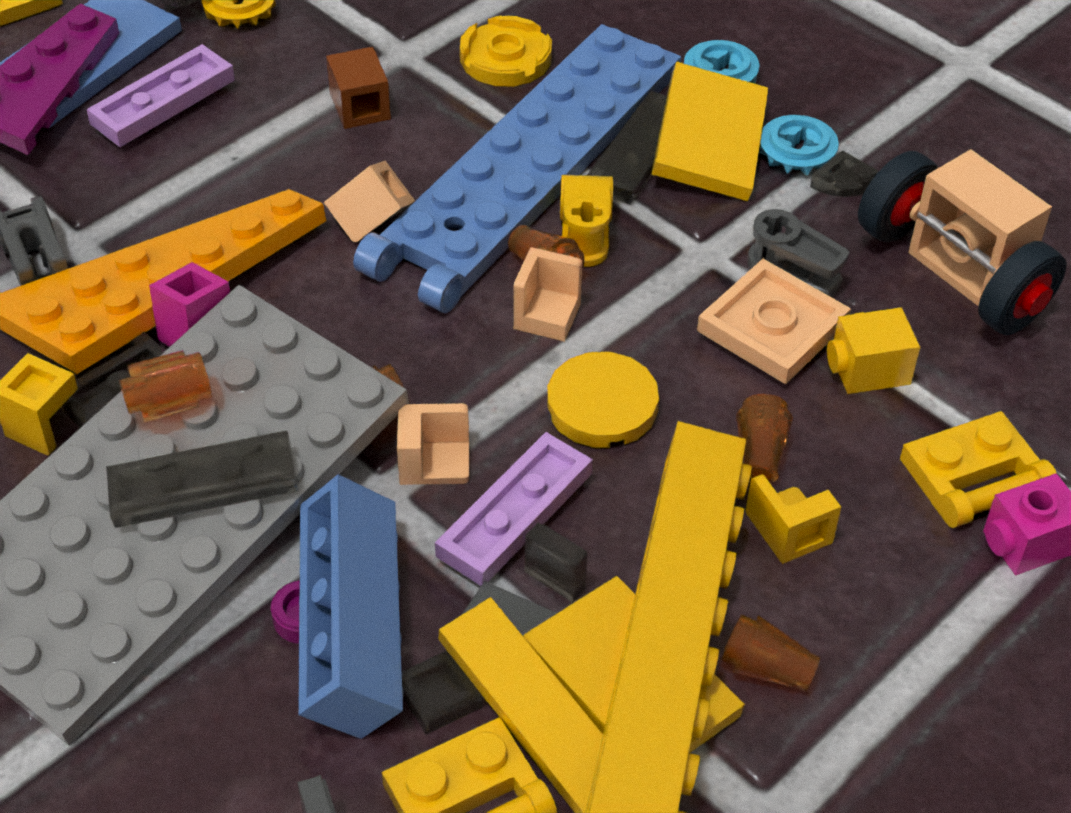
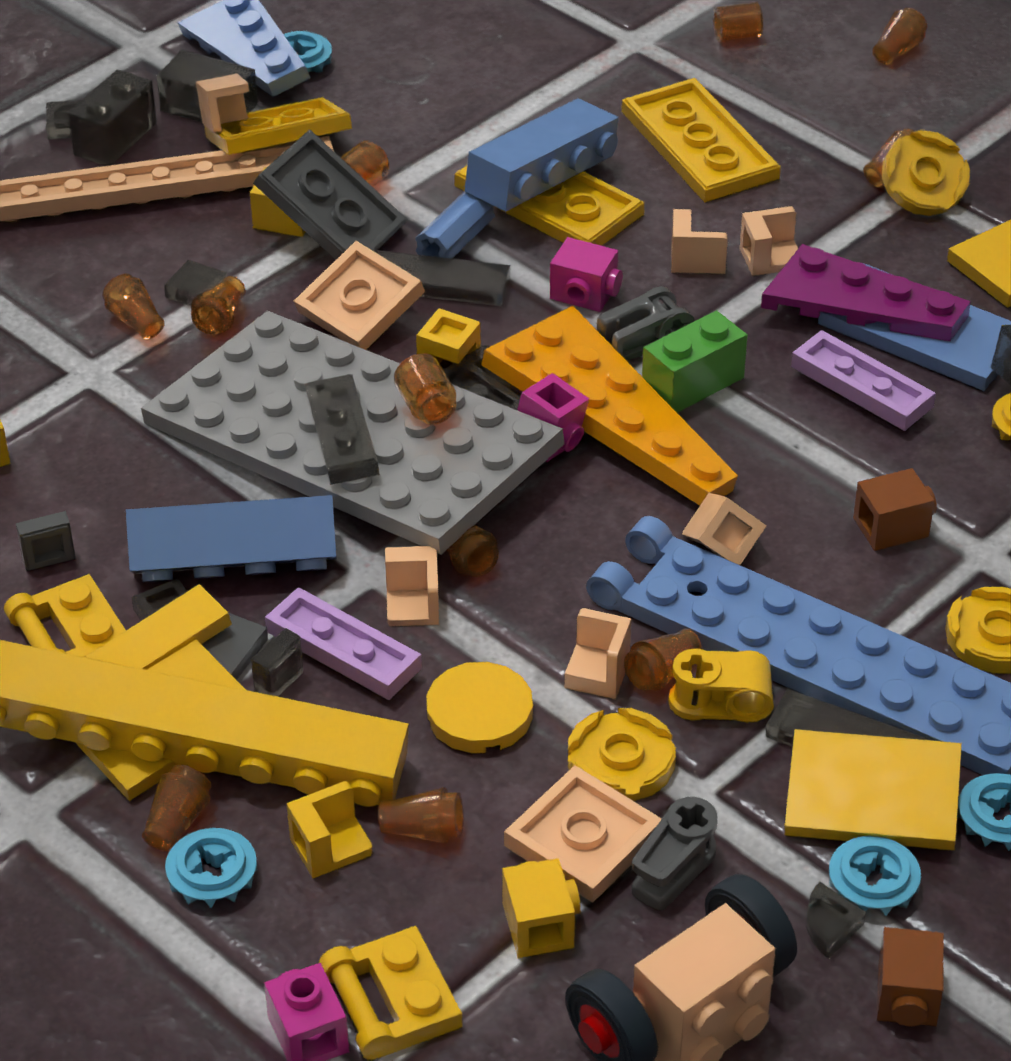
camera: 90 degrees right, 5 degrees down
(112, 198) = (695, 360): none -> bright green brick
(660, 297) = (624, 751): none -> yellow tile
(846, 600) = (220, 849): none -> medium azure gear
(915, 124) = (910, 976): none -> dark orange brick

